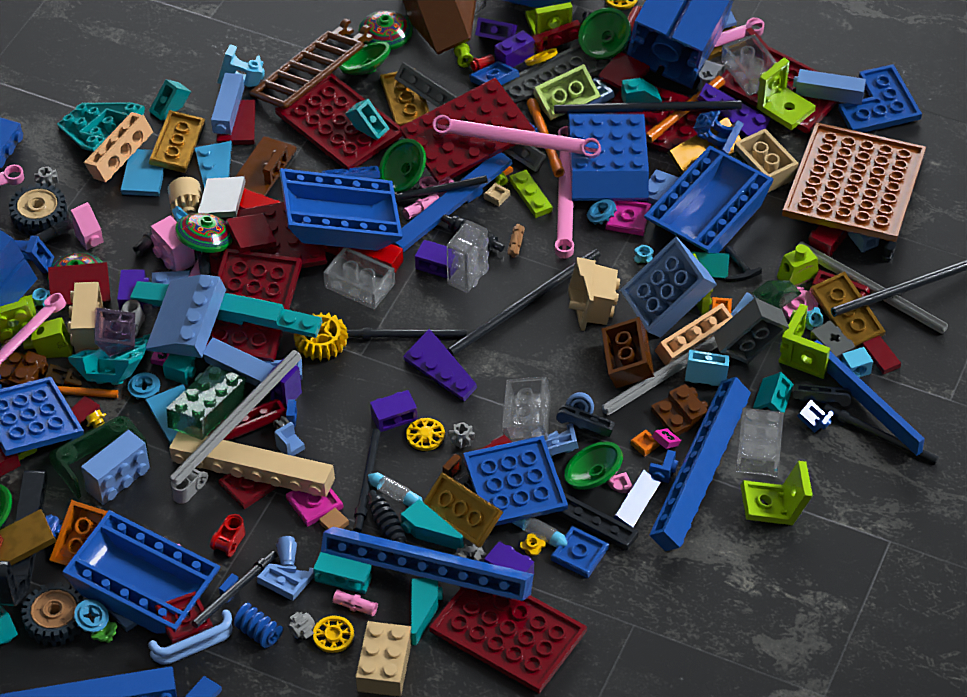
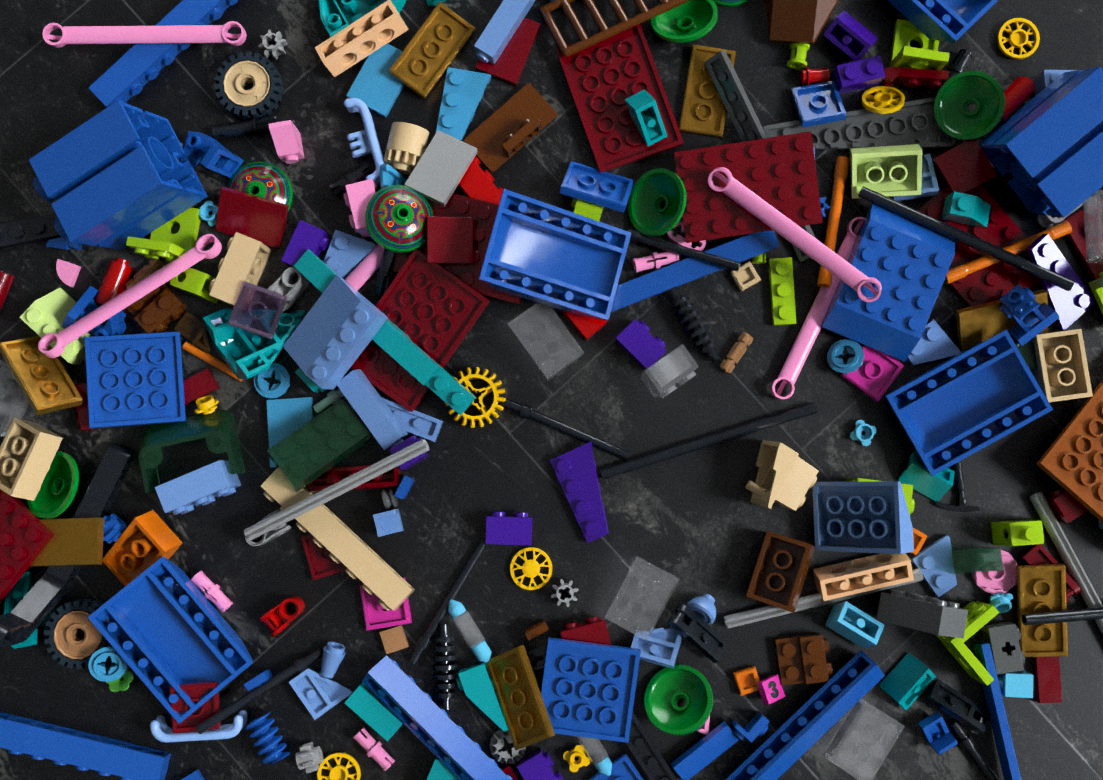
camera: 25 degrees right, 35 degrees up
(151, 207) = (366, 139): none -> light blue piece

